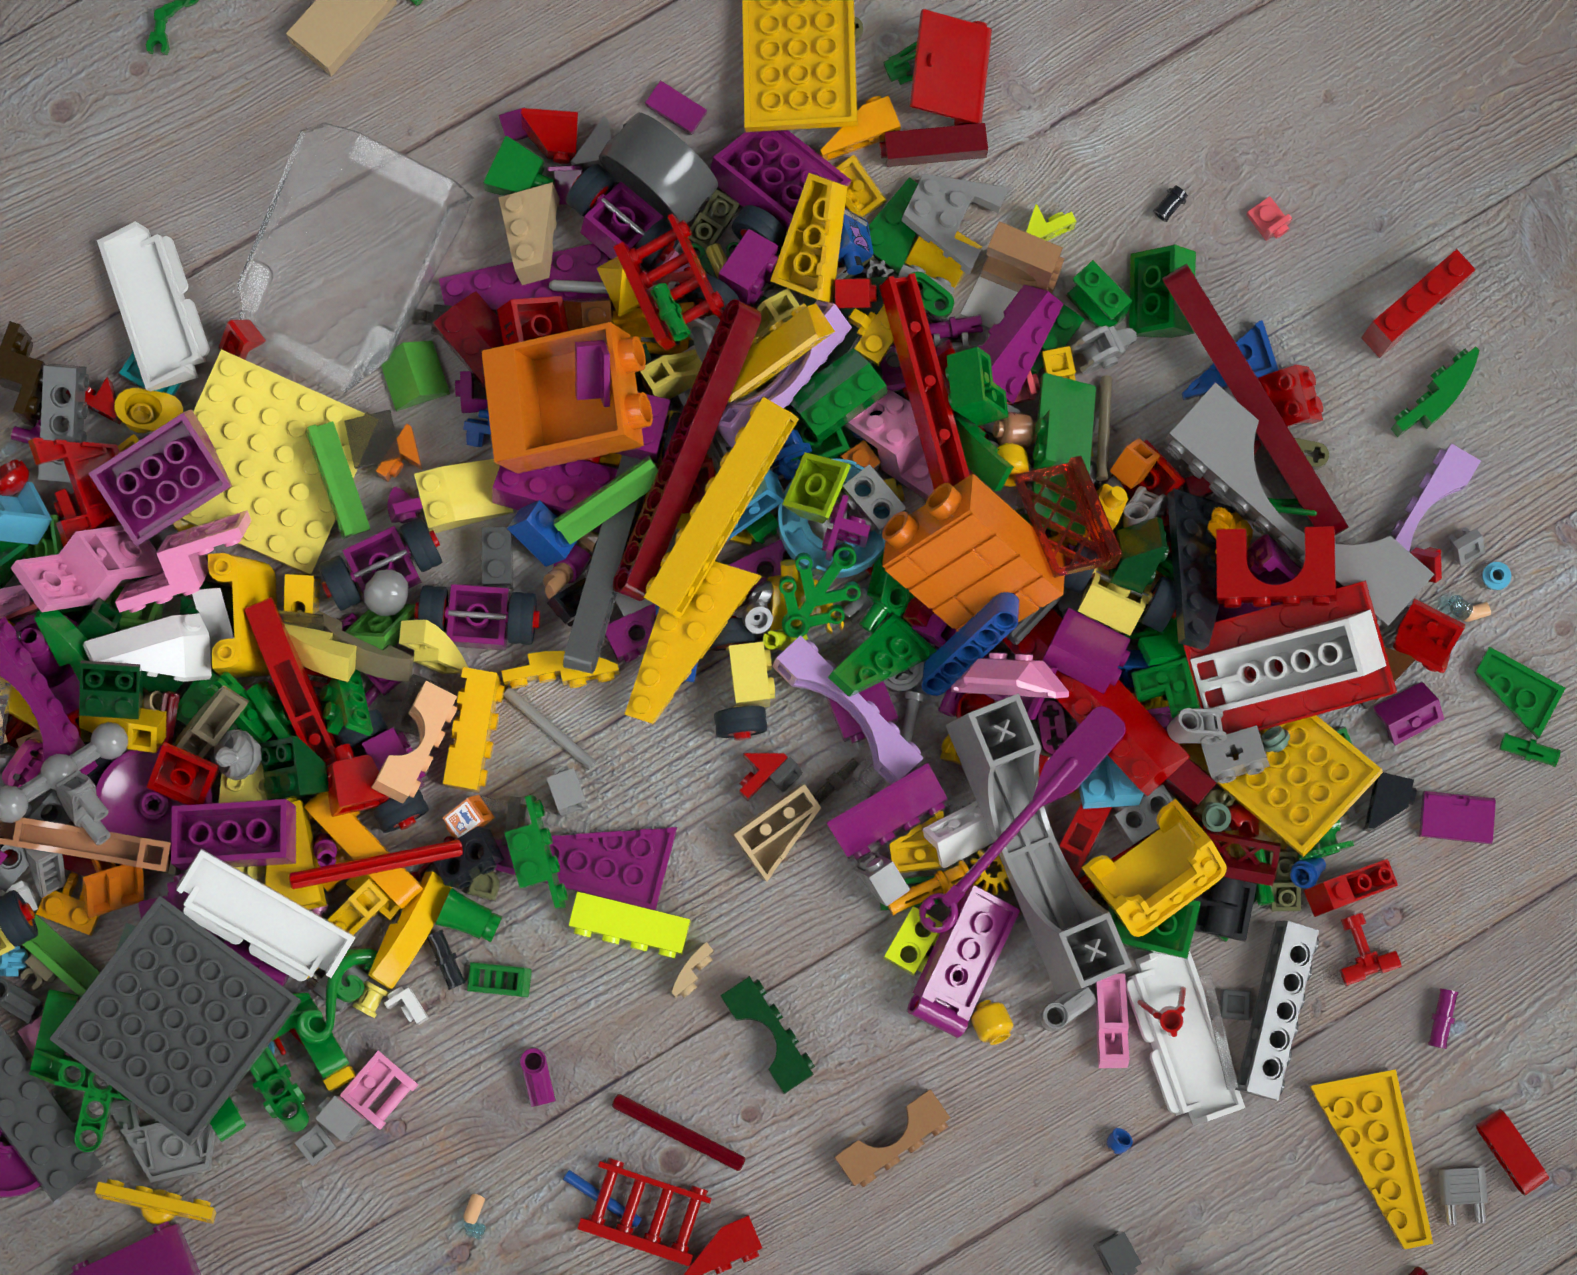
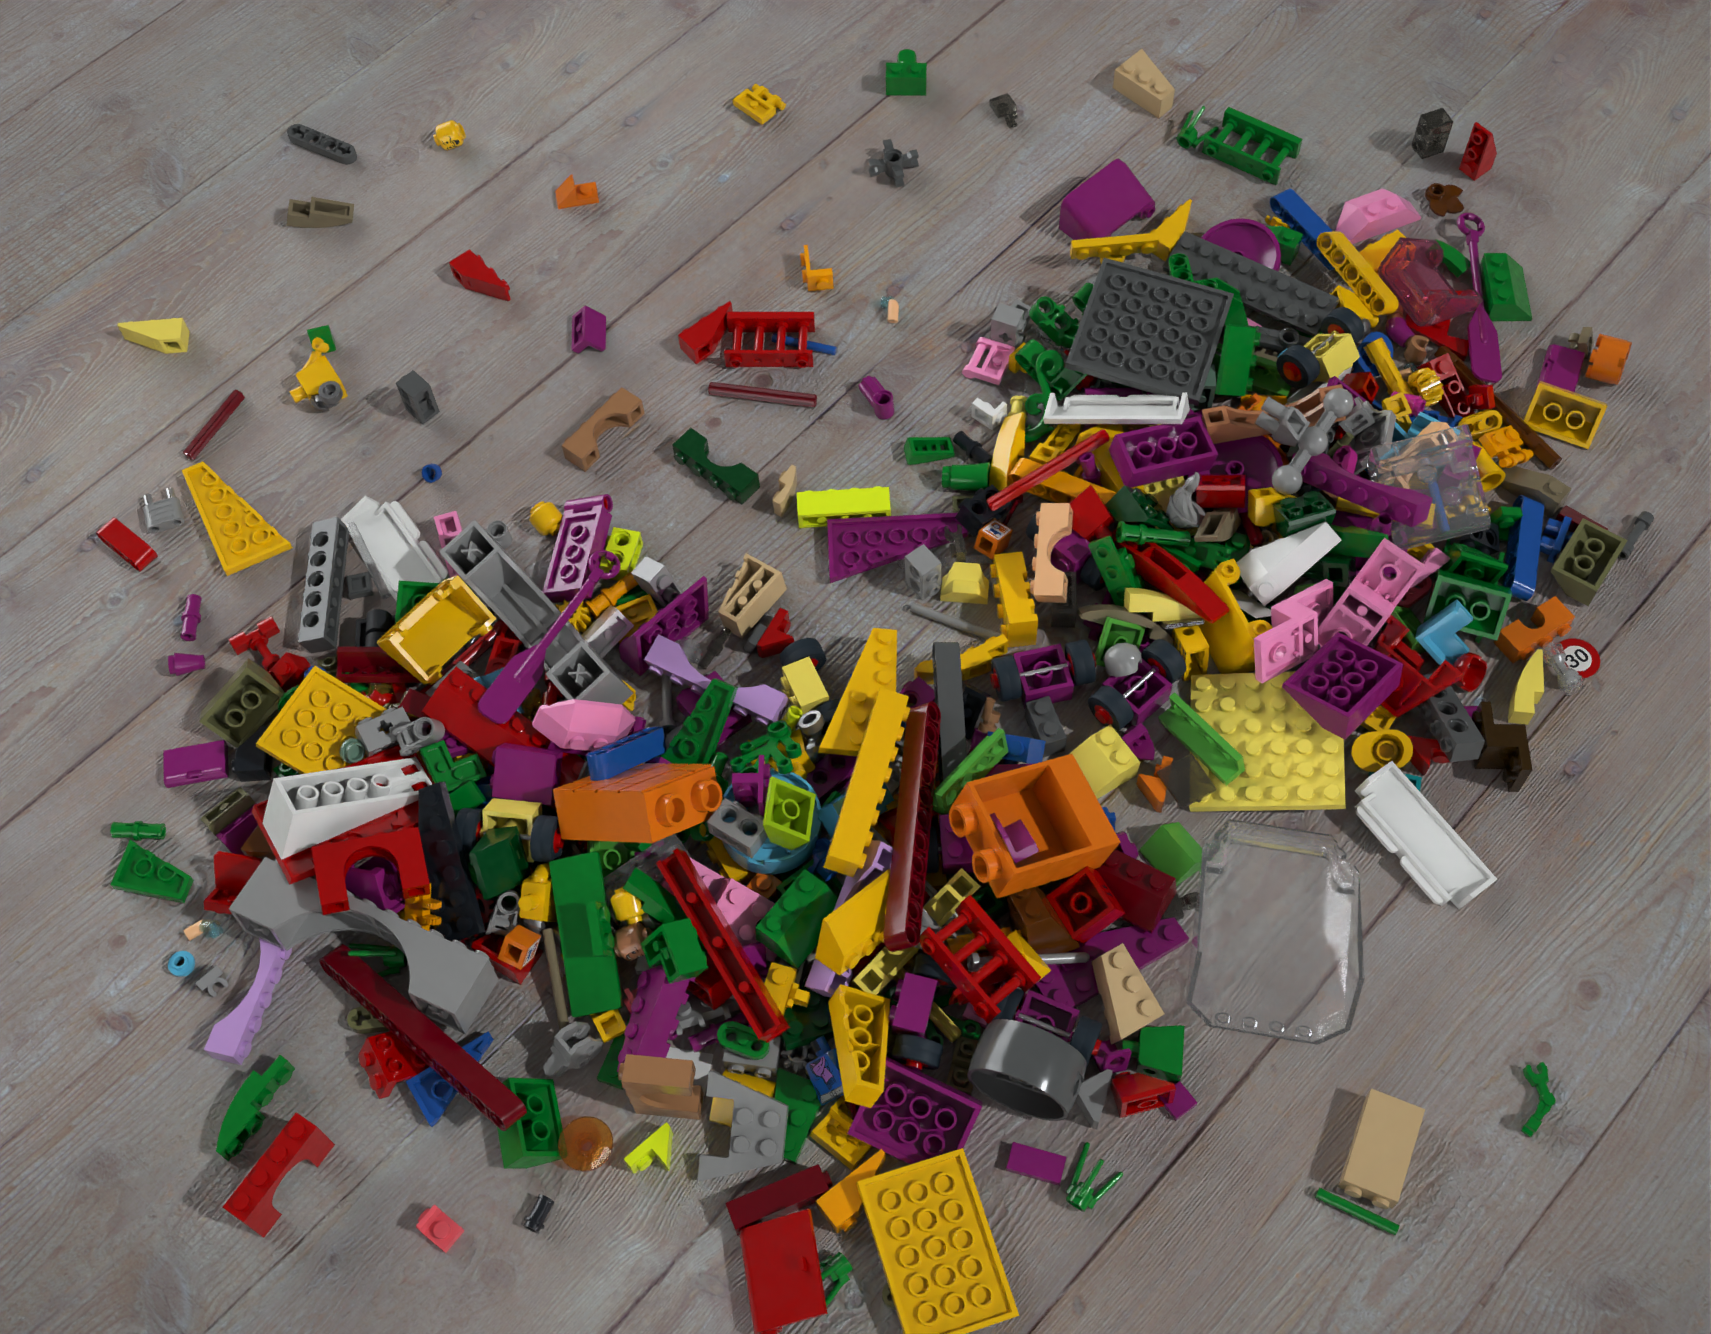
camera: 170 degrees right, 20 degrees down
(69, 1213) = (1172, 230): none -> yellow slope
(80, 961) = (1237, 360): none -> green slope
(240, 338) = (1331, 830): red slope -> none
(311, 736) = (1142, 534): none -> green pin
(431, 646) = (1069, 629): light yellow slope -> none
(521, 772) = (965, 584): none -> light yellow slope
(533, 855) = (931, 521): green bracket -> none
(643, 63) = (1081, 1195): none -> green plant
(670, 312) = (967, 922): green pin -> none
(855, 293) = (810, 1014): red brick -> none
(1088, 505) = (544, 870): clear red fence -> none
(1099, 297) = (584, 1088): green panel -> none
(1112, 241) = (576, 1135): none -> clear orange dish
(1169, 1016) = (405, 541): red plant -> none
(1216, 817) = (394, 689): sand green plate -> none
(1394, 864) = (242, 704): none -> olive slope
(1427, 746) = (227, 810): none -> olive slope
(1431, 559) = (244, 951): red tile -> none
(1456, 954) = (185, 663): none -> magenta cone

